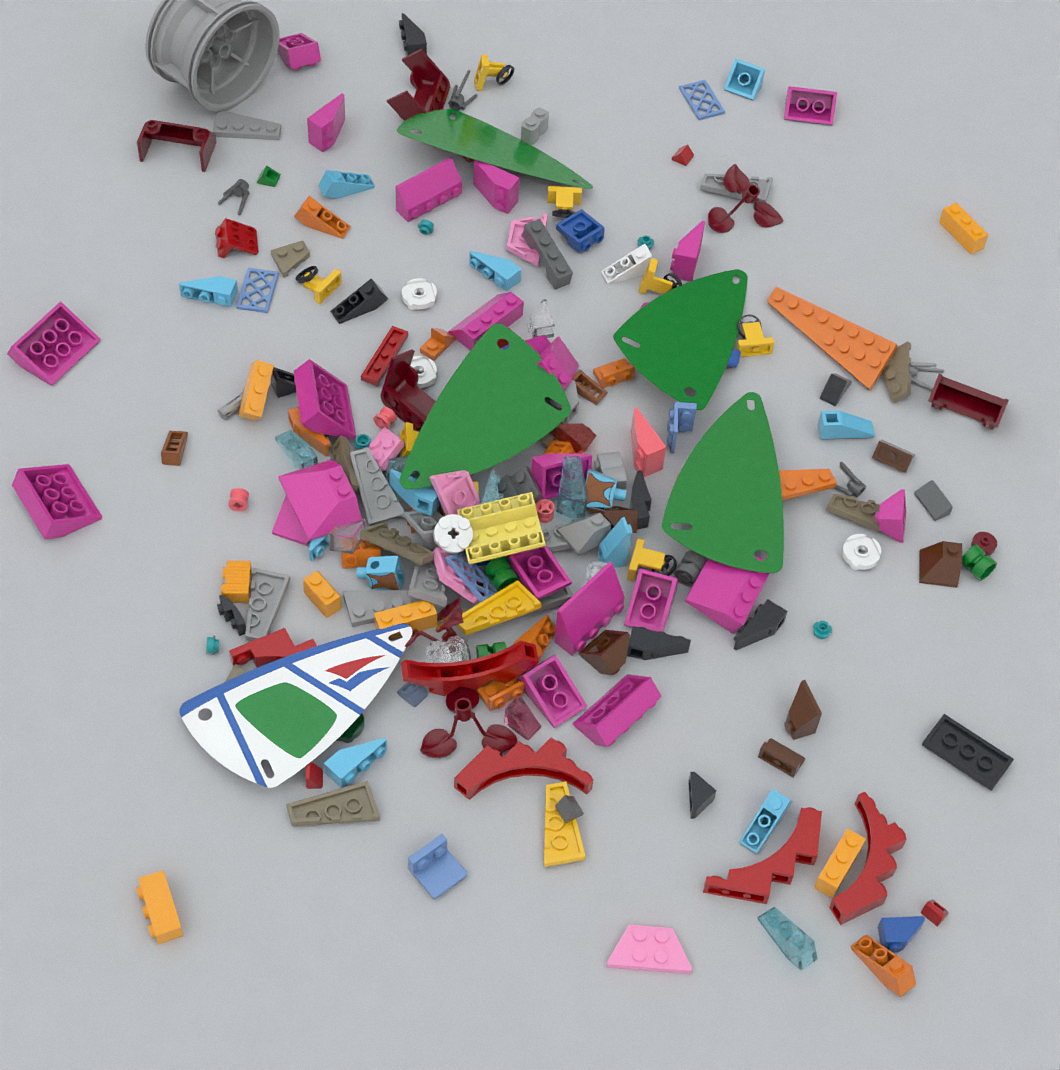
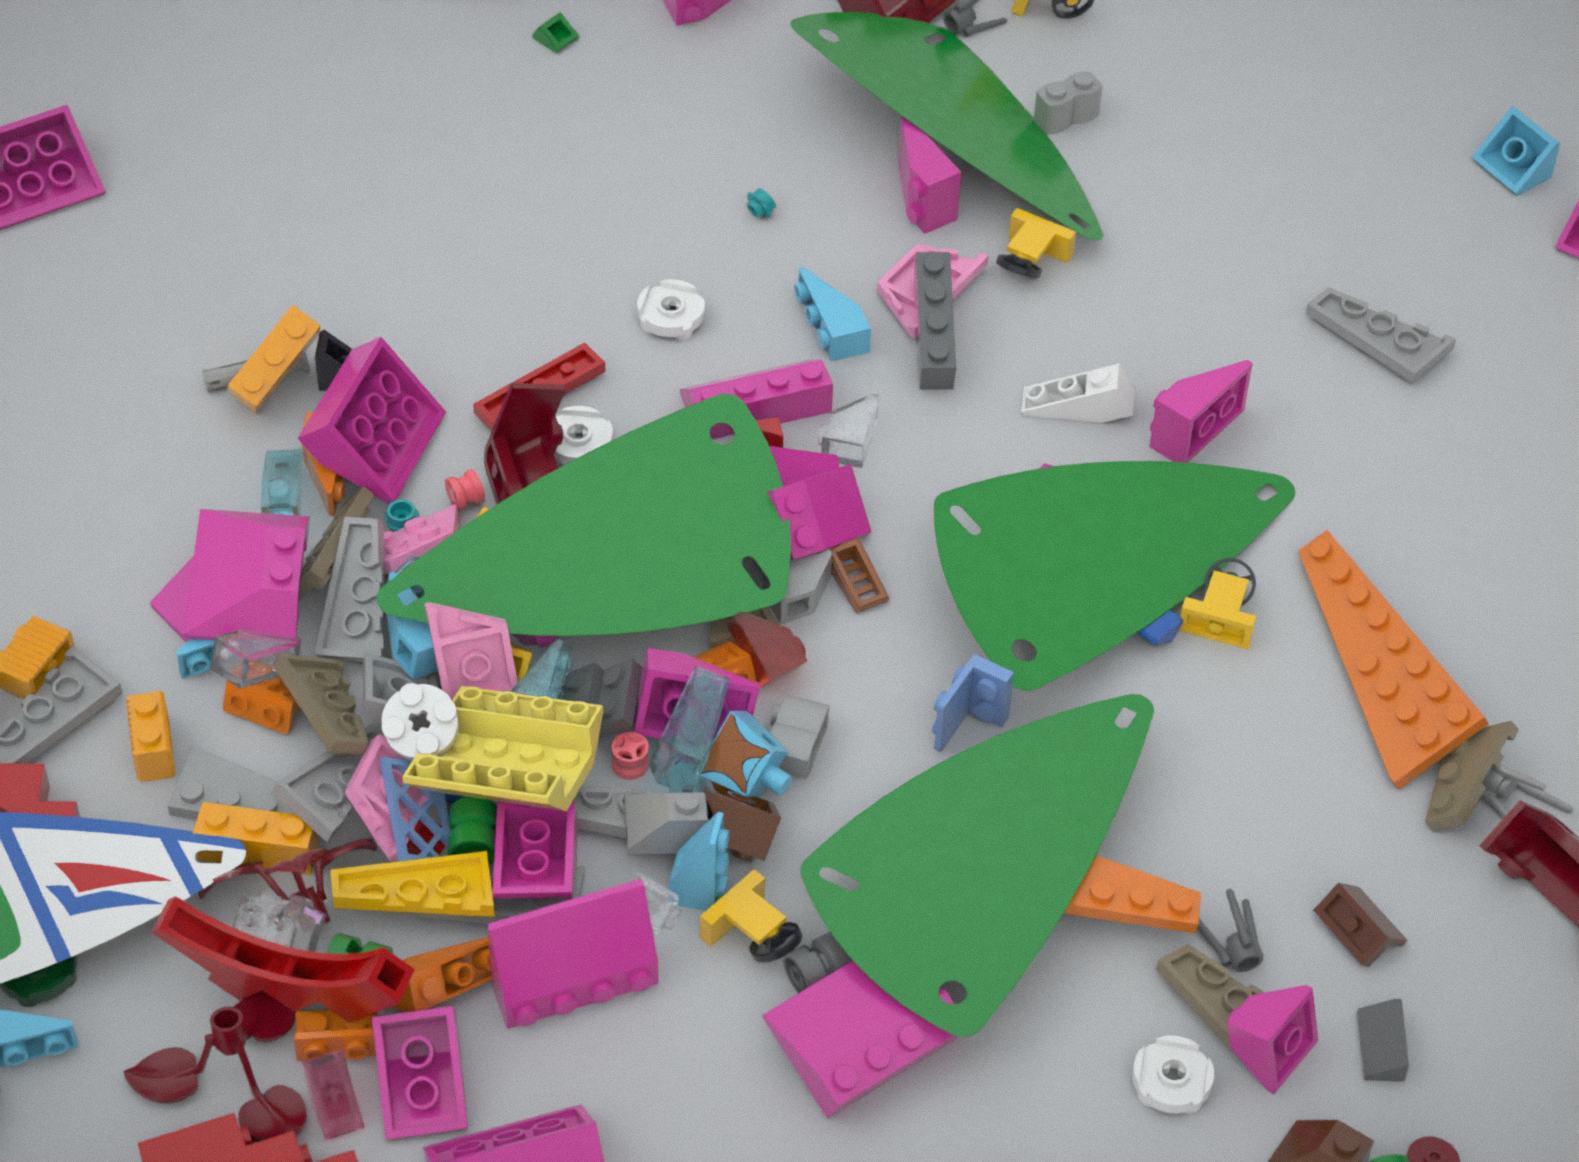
camera: 30 degrees right, 5 degrees down
(174, 449) = (91, 405): dark orange slope -> none
(213, 290) = (332, 177): medium azure slope -> none
(235, 235) = (432, 109): red bracket -> none
(238, 499) = (130, 527): coral wheel -> none
(239, 189) = (493, 34): dark grey plant -> none
(253, 304) = (383, 229): medium blue window -> none
(290, 256) = (500, 171): dark tan wing -> none
(321, 219) = (590, 127): orange slope -> none
(321, 287) = (514, 236): yellow piece -> none
(342, 184) = (670, 86): medium azure slope -> none
(360, 302) = (561, 285): black slope -> none
(382, 573) = (270, 742): medium azure torso -> none
(412, 693) = (185, 974): sand blue slope -> none
(428, 190) = (800, 142): dark pink slope -> none
(437, 344) = (651, 400): orange slope -> none
(581, 231) = (1028, 305): blue plate -> none
(607, 651) = (565, 1048): reddish brown slope -> none
(614, 373) = (915, 570): orange bracket -> none
(641, 500) = (809, 809): black slope -> none
(645, 240) = (1138, 368): teal plate -> none
(646, 446) = (878, 721): coral slope -> none
(651, 600) = (708, 993): dark pink slope -> none
(651, 644) = (656, 1071): black slope -> none
(657, 284) = (1099, 443): yellow piece -> none
(683, 155) = (1314, 245): red slope -> none
(709, 113) = (1416, 188): medium blue window -> none
(737, 181) = (1380, 324): dark red plant -> none
(764, 624) = (887, 1125): black slope -> none
(835, 389) = (1326, 756): black slope -> none
(843, 425) = (1291, 828): medium azure slope -> none

